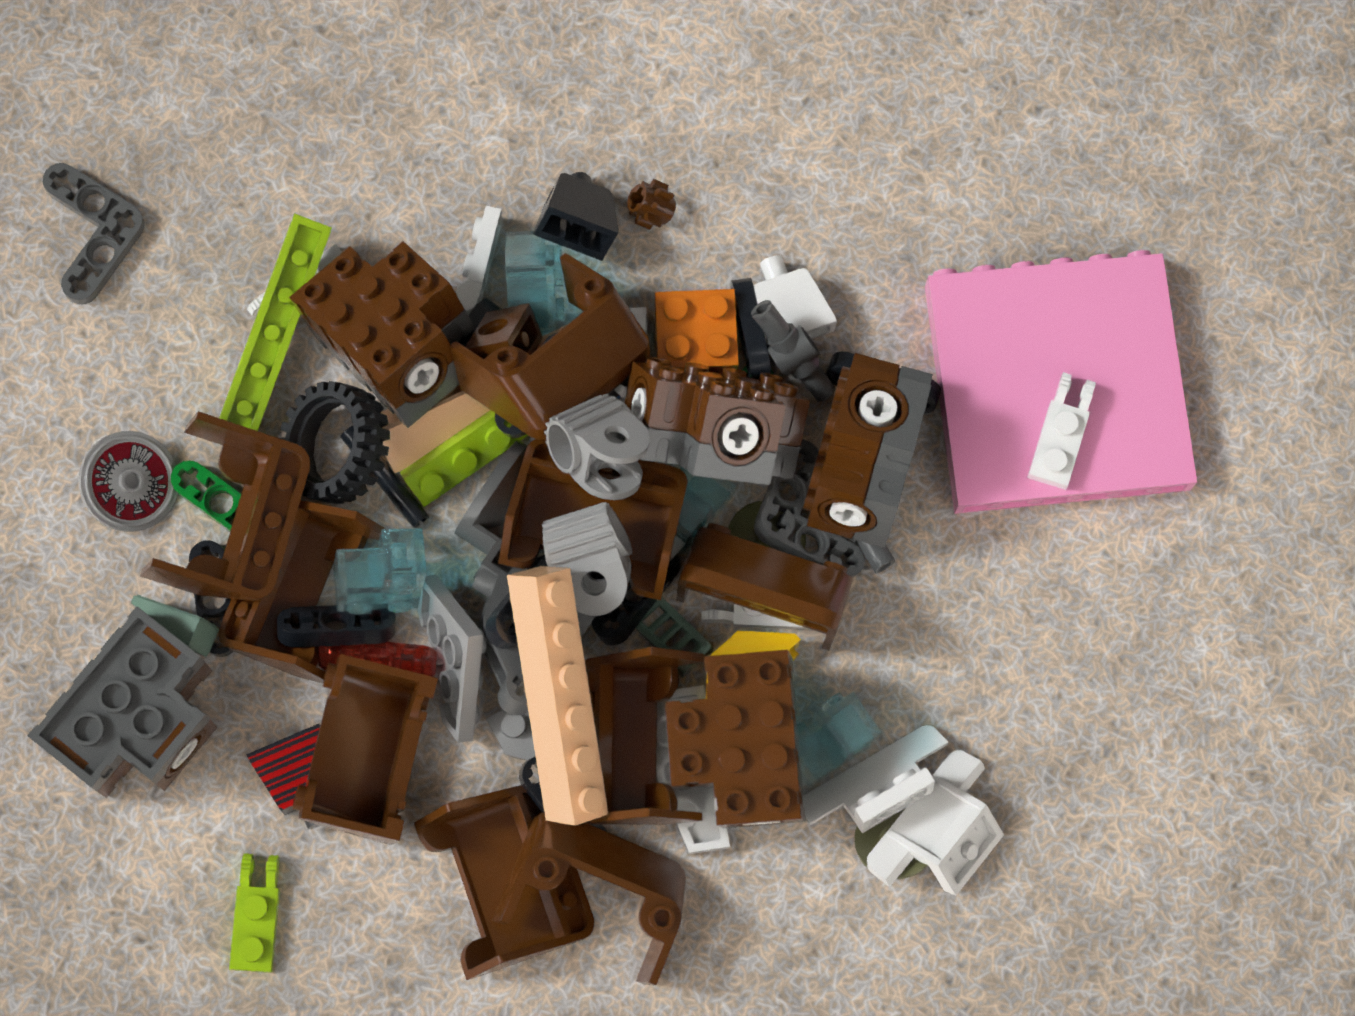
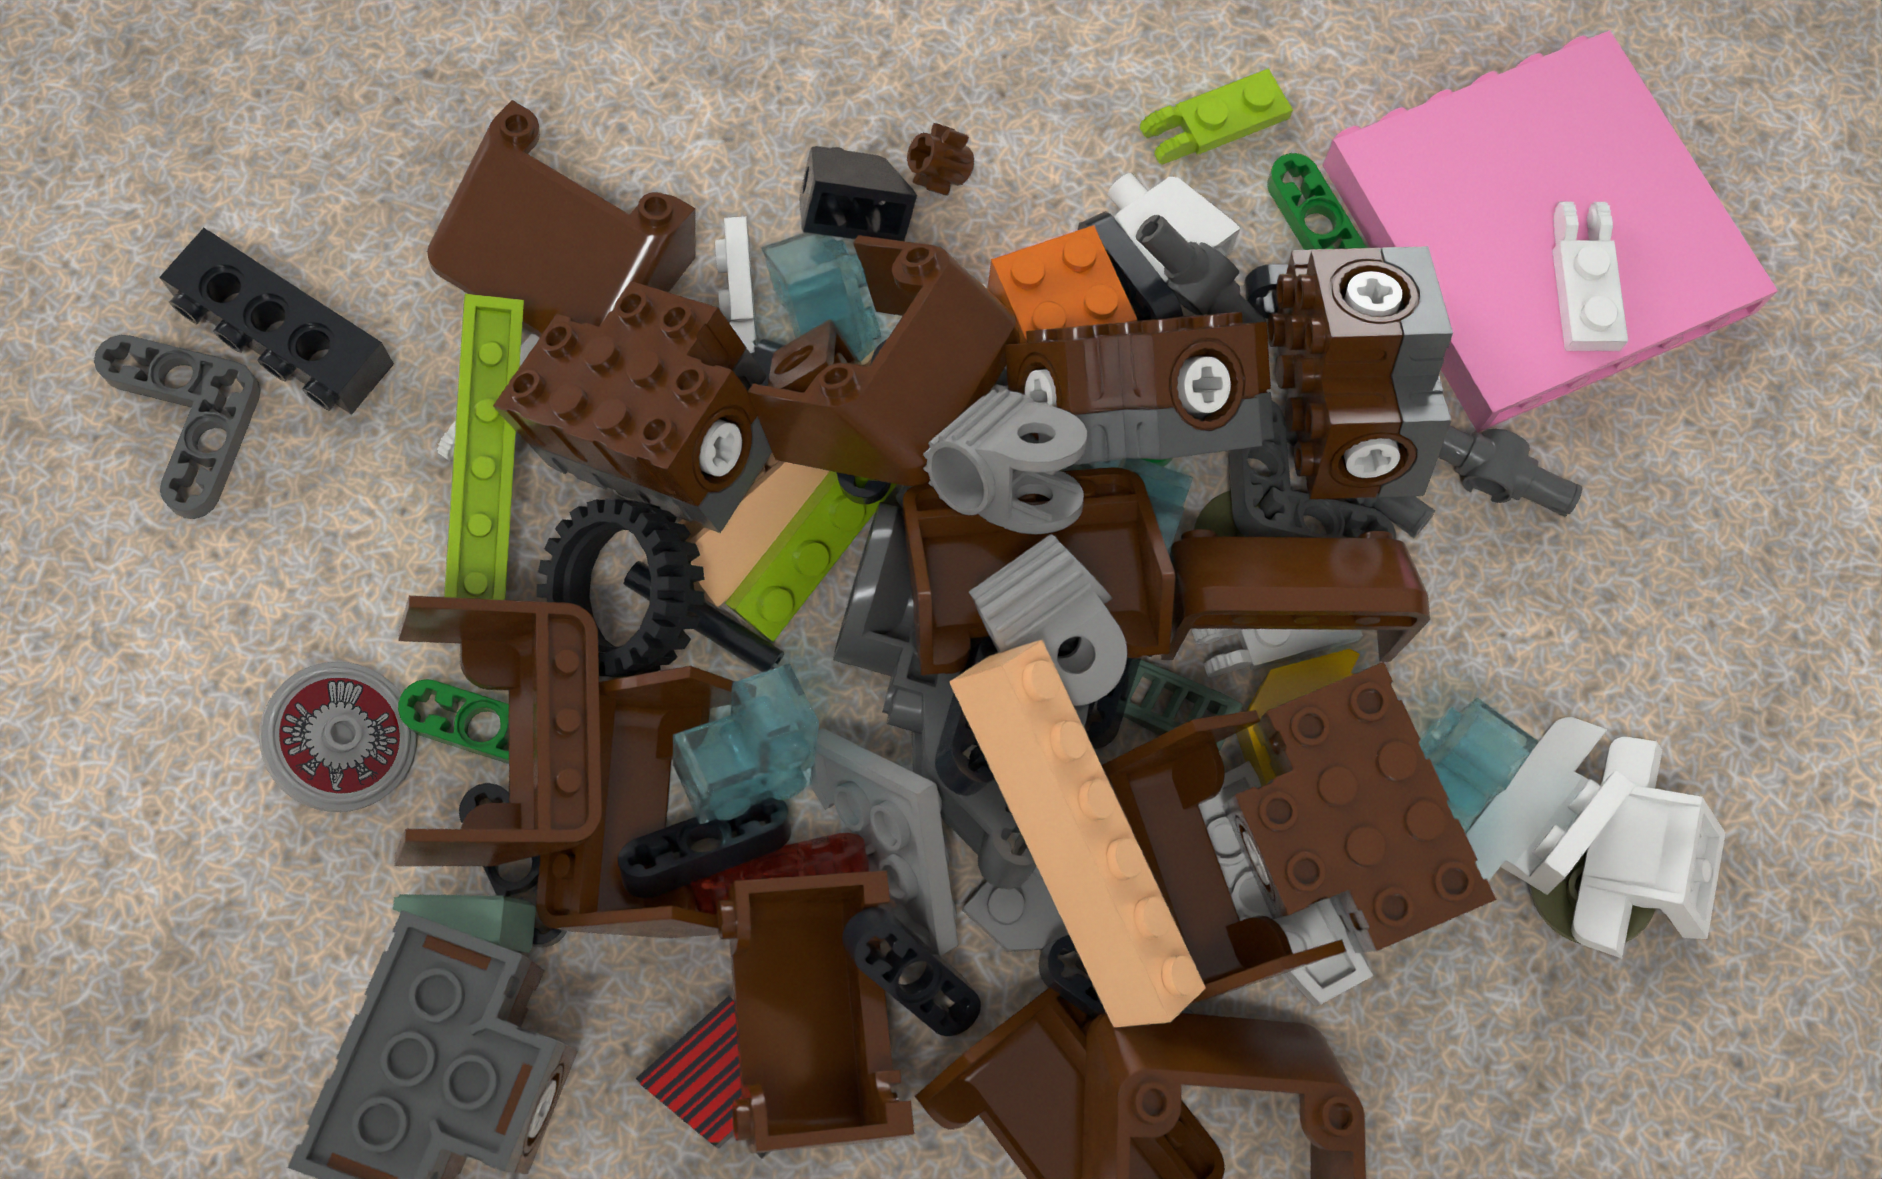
camera: 20 degrees left, 5 degrees down
(138, 136) = (214, 270): none -> black brick
(361, 190) = (548, 240): none -> reddish brown windscreen
(435, 730) = (906, 950): none -> black beam
(863, 228) = (1218, 116): none -> lime hinge
(909, 299) = (1324, 203): none -> green beam
(953, 541) = (1501, 467): none -> dark grey pin

